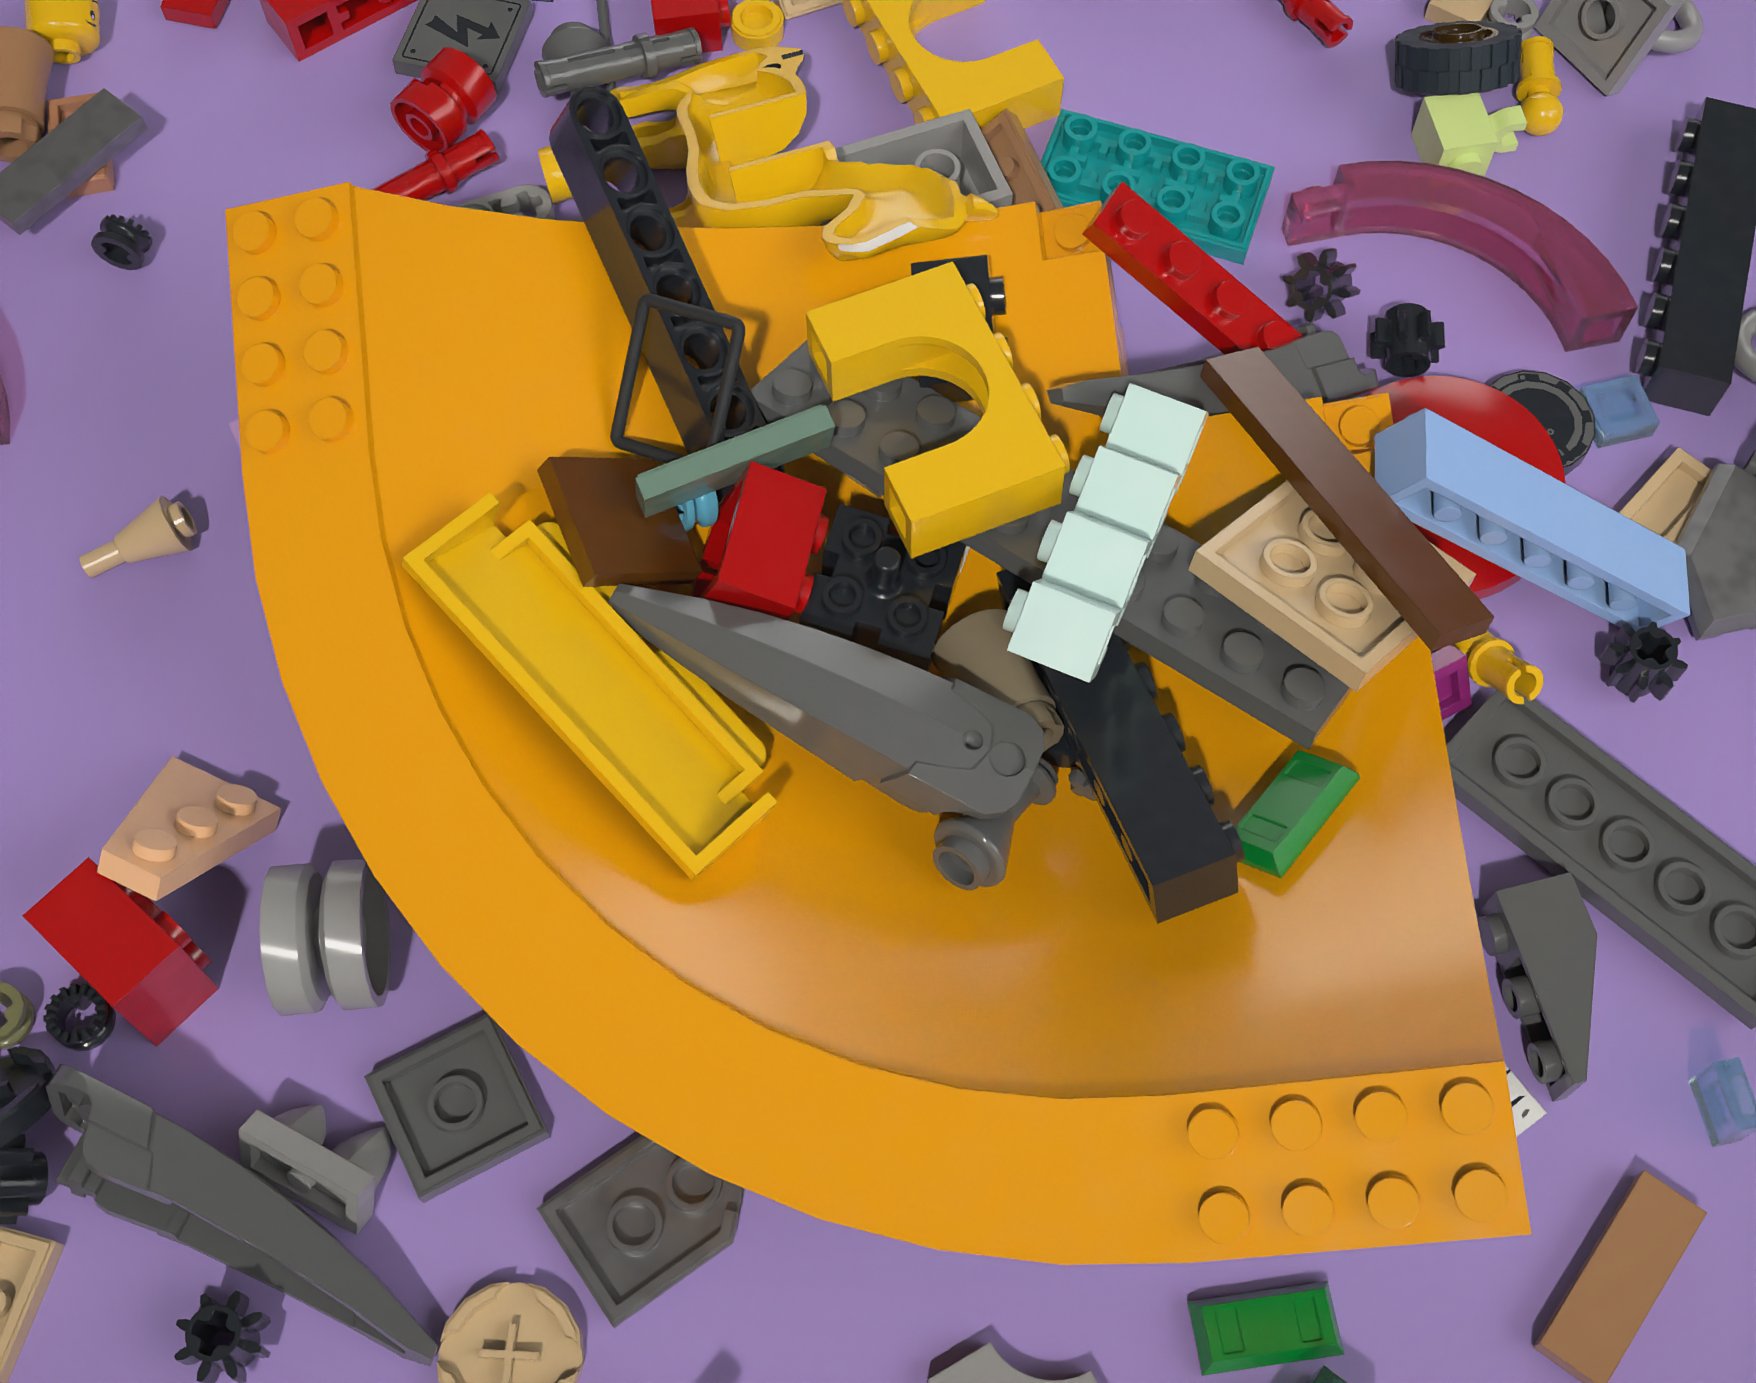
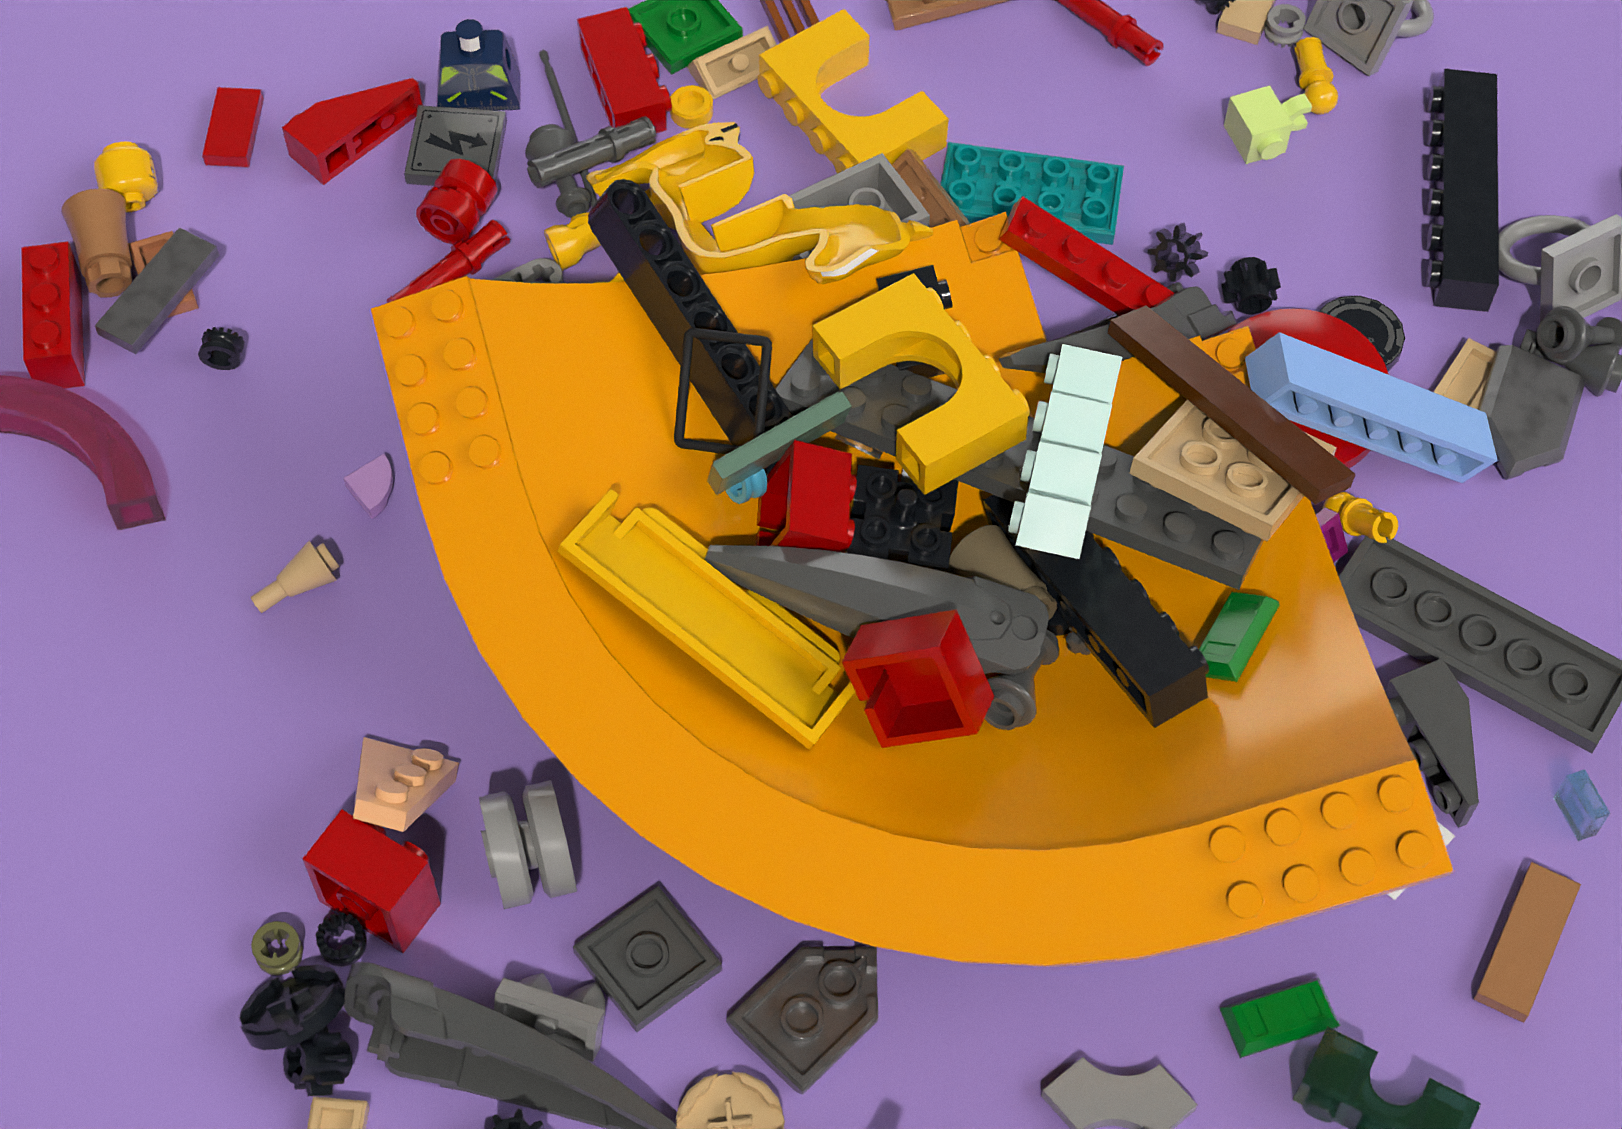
camera: 10 degrees left, 5 degrees down
(607, 528) = (691, 506): reddish brown tile -> none
(869, 810) = (930, 679): none -> red piece
(1458, 57) = (1250, 62): black wheel -> none
(1481, 217) = (1289, 184): clear pink arch -> none
(1620, 411) = (1420, 317): clear light blue tile -> none
(1643, 662) = (1469, 500): black gear -> none

